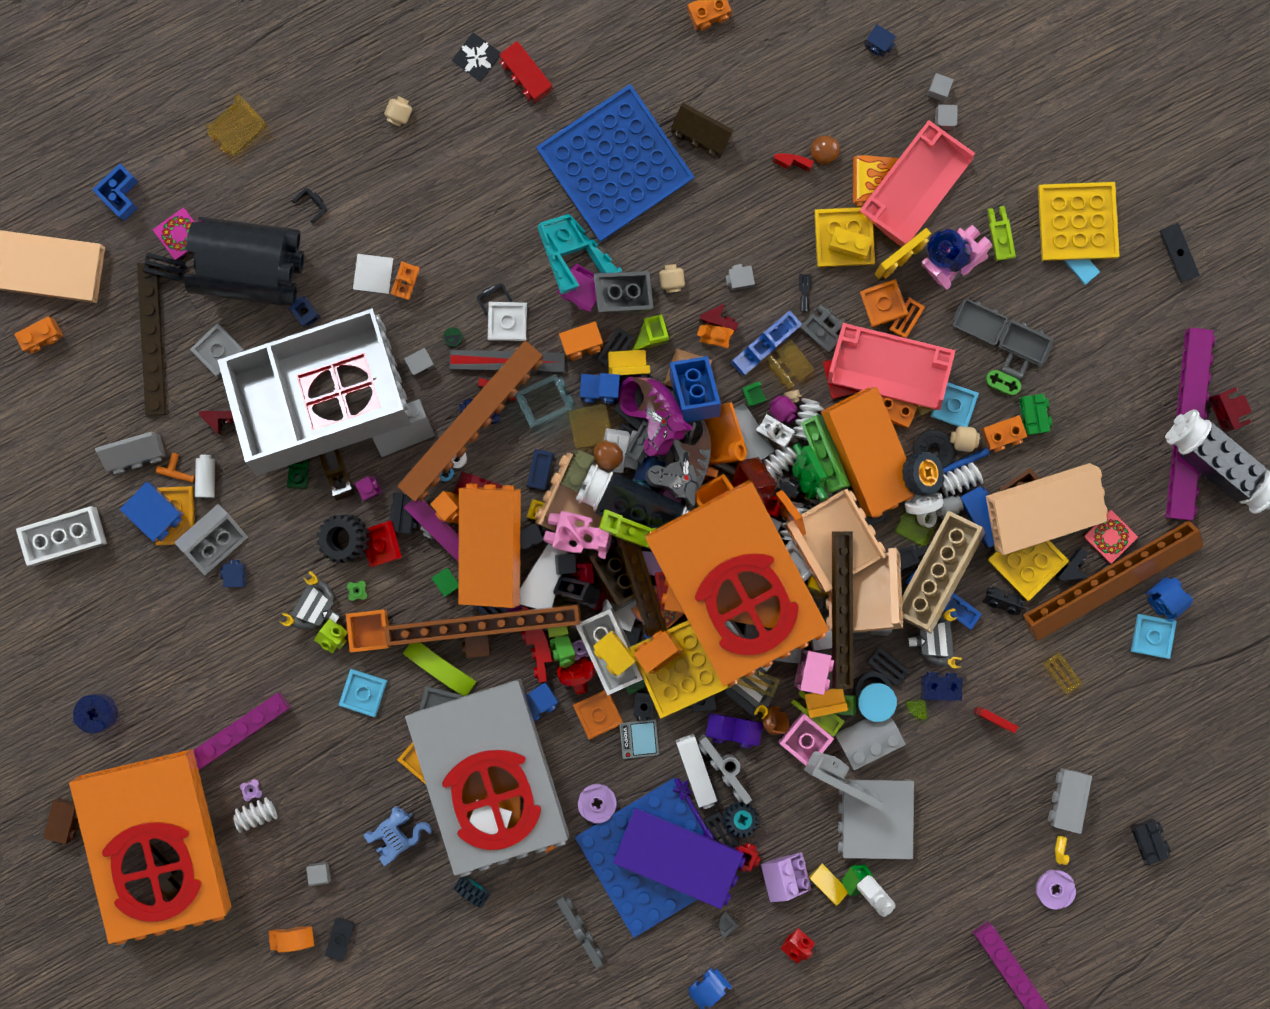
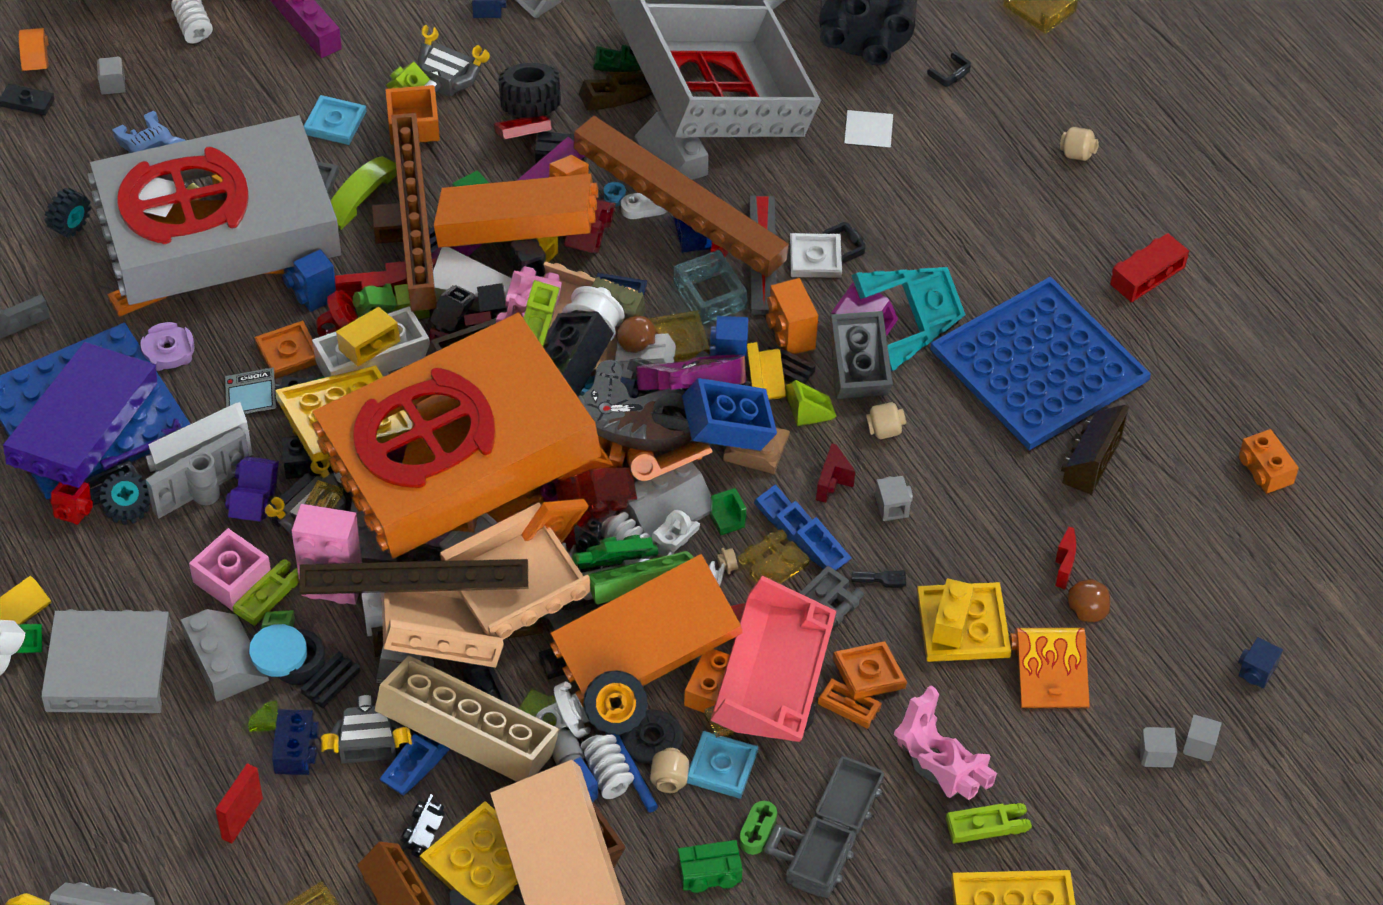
camera: 95 degrees right, 35 degrees down
(247, 795) = (222, 19): lavender plate -> none
(307, 319) = (815, 58): dark blue brick -> none
(362, 591) = (464, 112): bright green plate -> none
(368, 488) = (591, 108): magenta brick -> none
(408, 274) = (852, 148): orange hips -> none
(419, 361) = (760, 165): light grey panel -> none
(453, 337) = (791, 201): dark green tile -> none
(476, 56) = (1161, 220): black sticker -> none
(659, 651) = (366, 363): orange piece -> none
(715, 335) = (810, 462): orange hips -> none
(776, 721) = (263, 533): dark orange hair -> none
(783, 409) = (709, 543): magenta head -> none
(786, 877) = (37, 552): lavender slope -> none
(822, 767) = (169, 575): light grey plate -> none
(829, 703) = (282, 591): light orange panel -> none
(903, 255) = (938, 664): yellow plate -> none
(917, 183) = (1050, 705): coral slope -> none
(959, 251) = (951, 722): clear blue brick -> none
(1003, 433) = (678, 821): orange brick -> none

